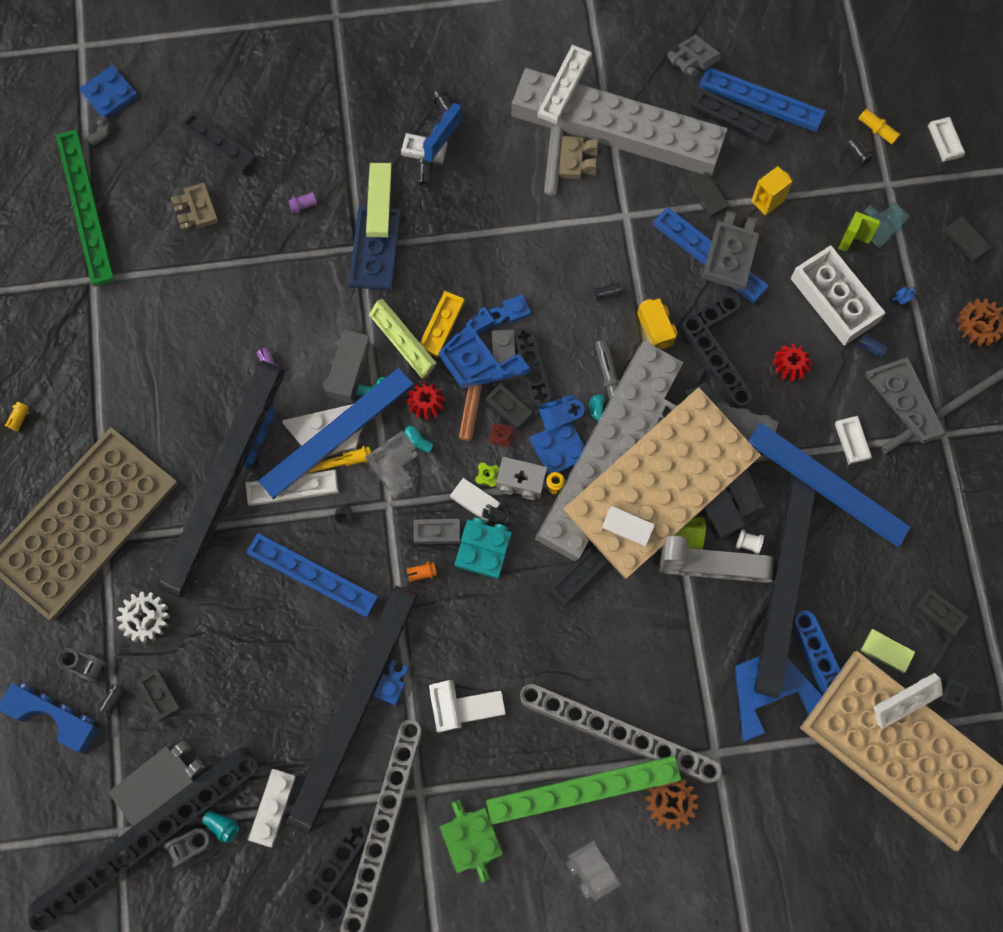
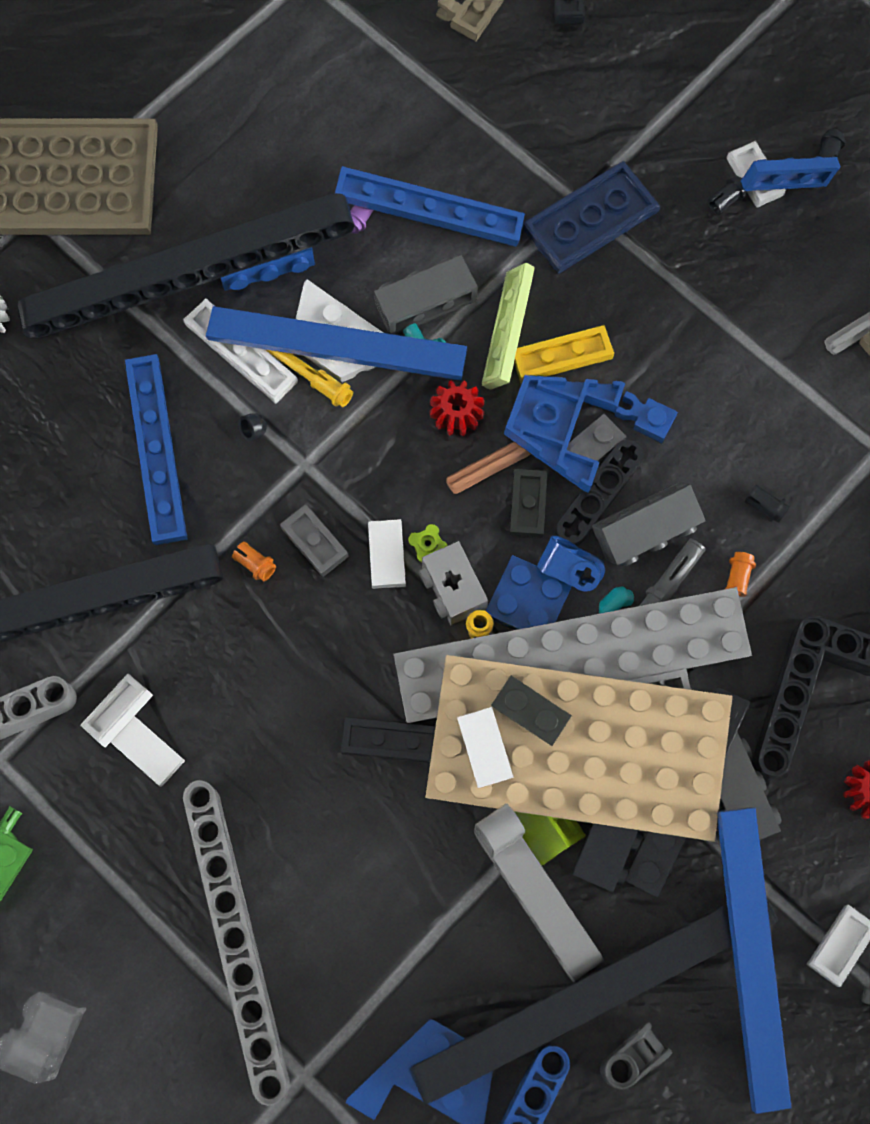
camera: 50 degrees right, 0 degrees up
(17, 416) = (94, 26): yellow pin -> none
(298, 324) = (430, 206): none -> blue plate
(302, 202) = (574, 102): medium lavender pin -> none
(378, 200) = (648, 174): yellowish green tile -> none
(388, 463) = (349, 423): clear brick -> none
(390, 686) = (94, 632): blue plate -> none
(417, 440) = (403, 432): teal arm -> none
(483, 548) = (336, 607): teal plate -> none
(496, 430) = (489, 511): clear red plate -> none
(499, 516) = (386, 591): black pin -> none
(571, 356) = (649, 524): none -> dark grey brick
(583, 789) = (136, 950): bright green plate -> none
(628, 488) = (531, 710): none -> pearl dark grey plate
(632, 334) = (740, 572): none -> orange pin
(656, 323) = (776, 591): yellow brick -> none
(678, 812) = (182, 1064): dark orange gear -> none
(749, 542) = (600, 914): white bush -> none
(831, 577) = (636, 1056): none -> dark grey piece

